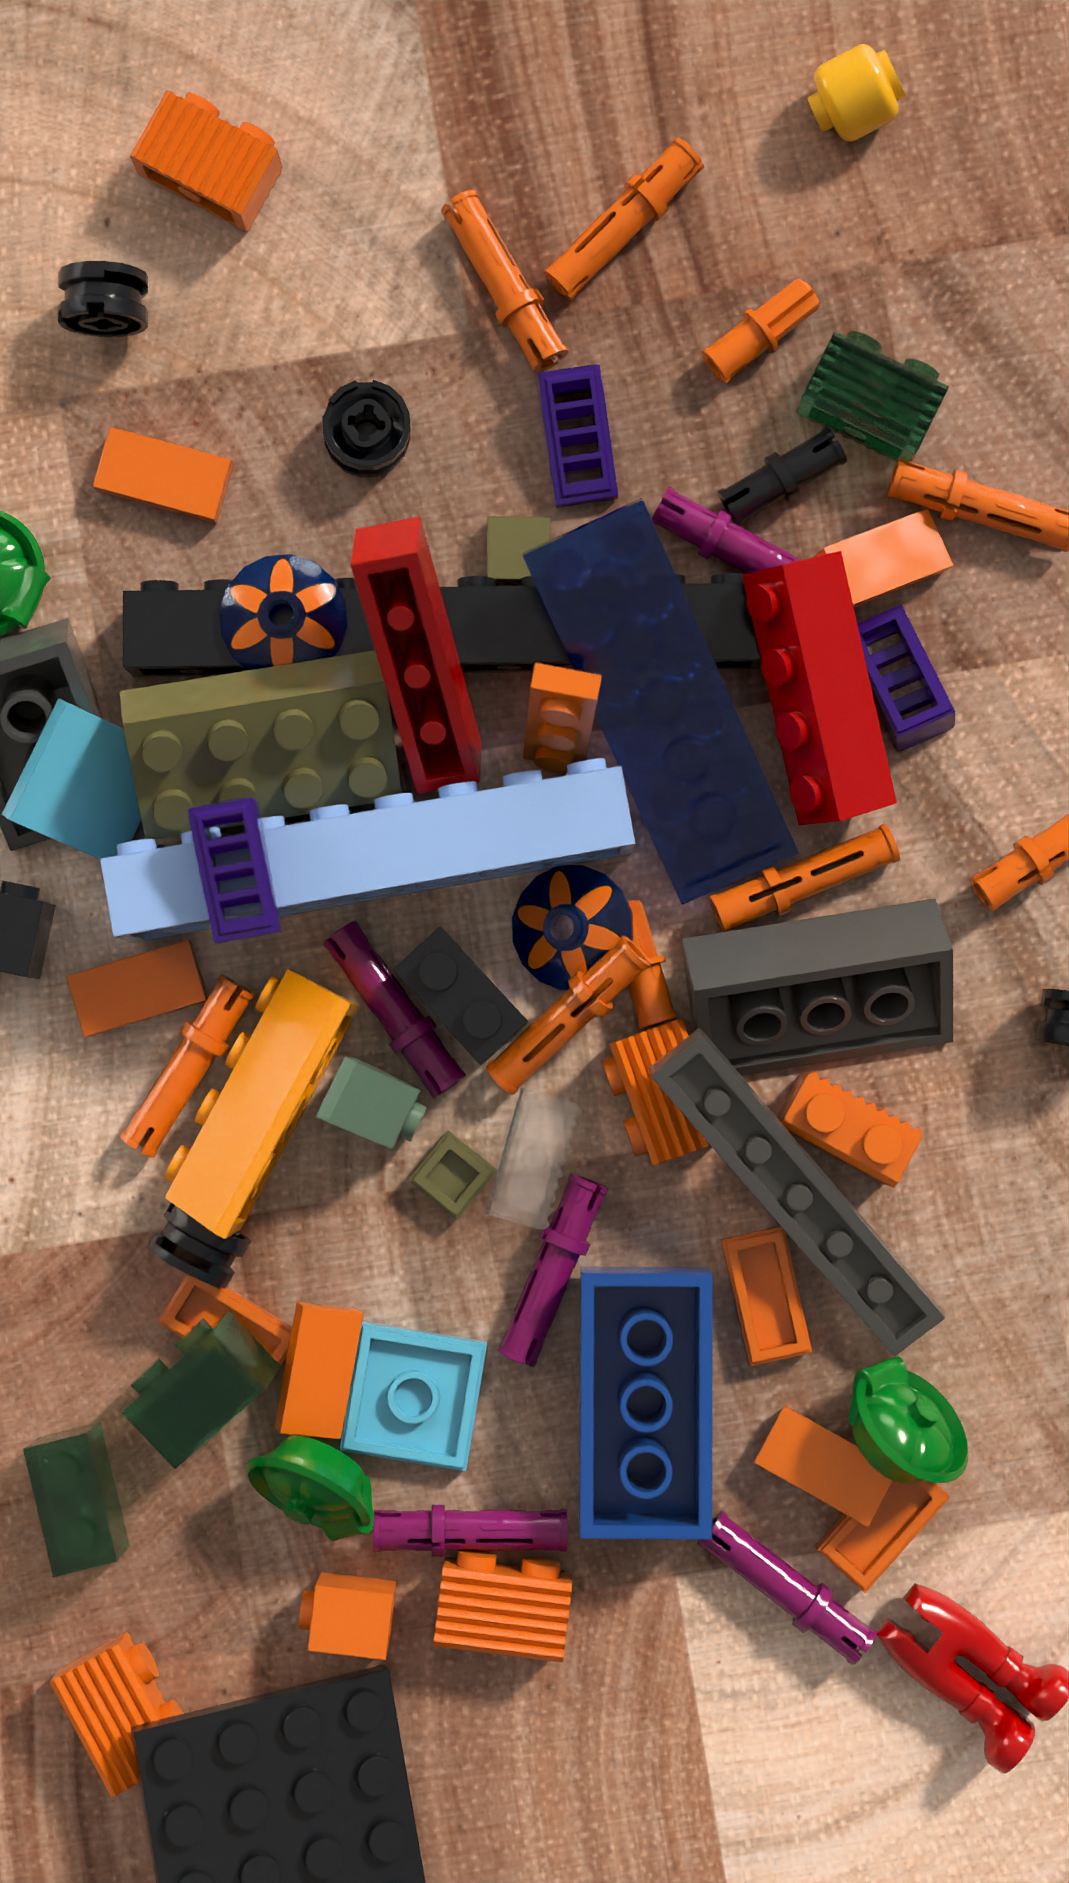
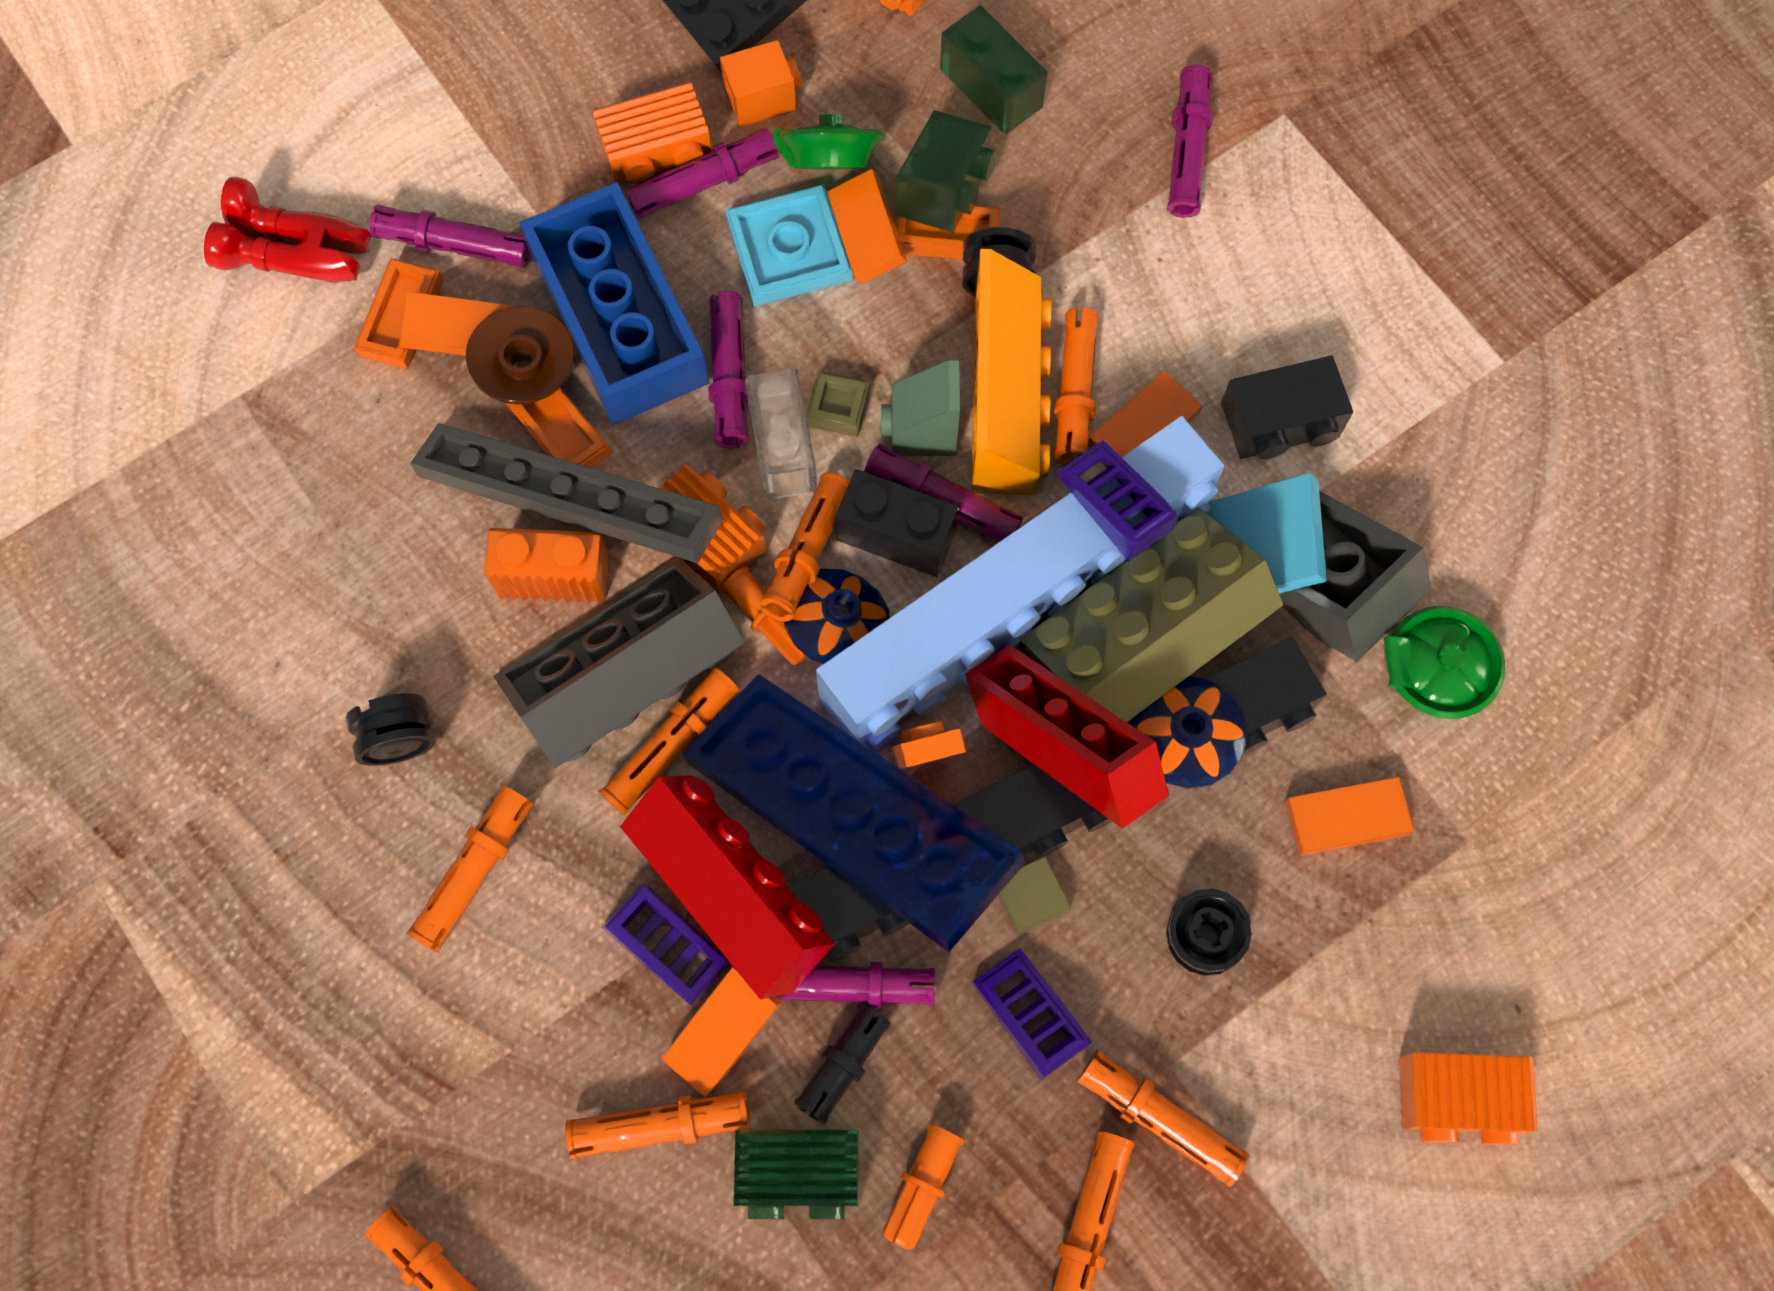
camera: 150 degrees right, 15 degrees down
(103, 299) = (1477, 920): black wheel -> none
(781, 1422) = (515, 336): none -> reddish brown dish
(906, 1425) = (404, 373): green piece -> none

